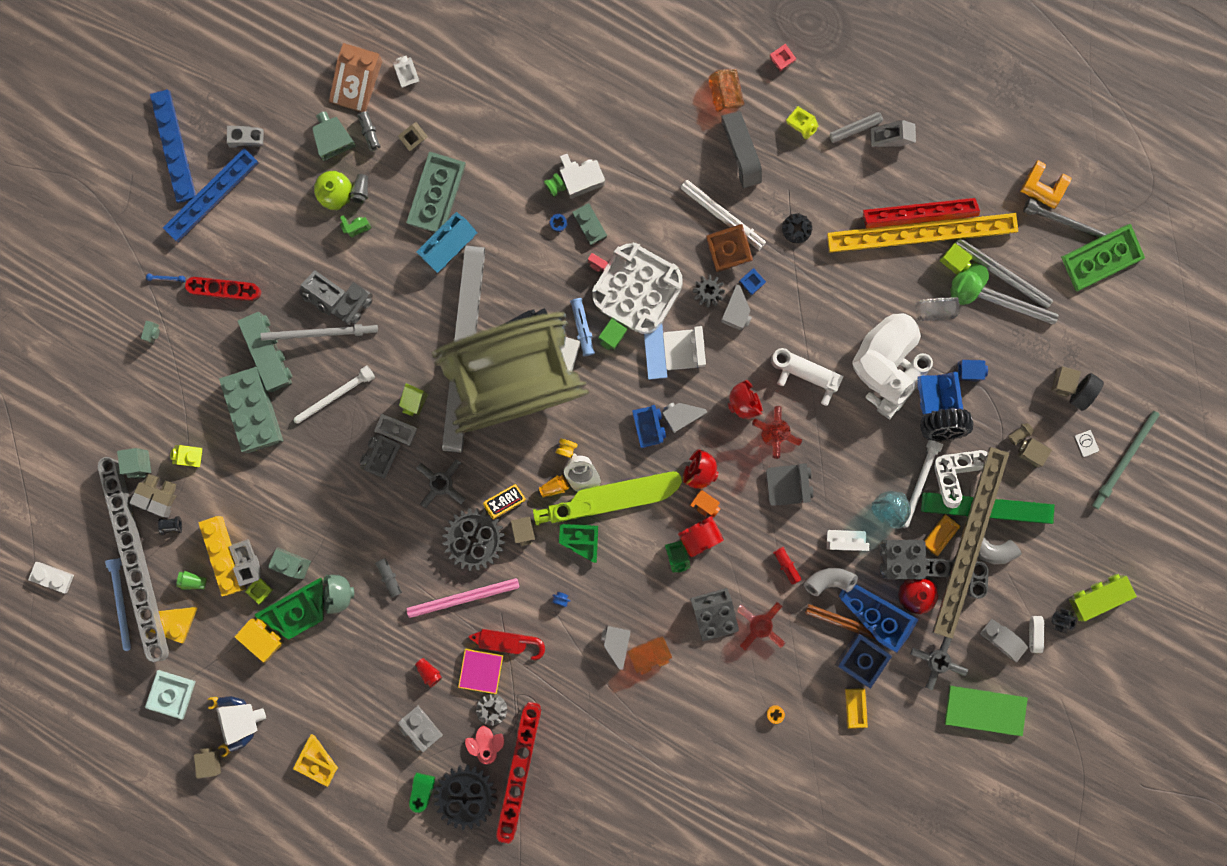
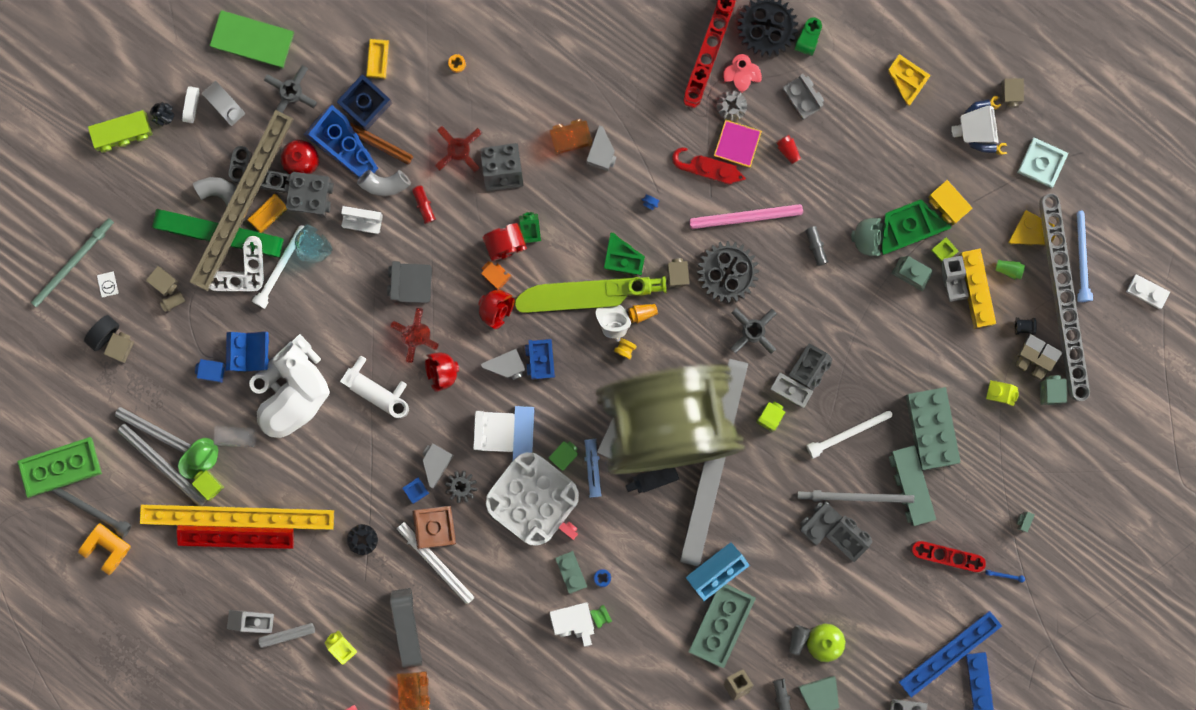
camera: 170 degrees left, 0 degrees up
(356, 227) = (804, 602): bright green bracket -> none
(504, 501) = (693, 304): tile -> none
(946, 424) = (246, 318): black gear -> none

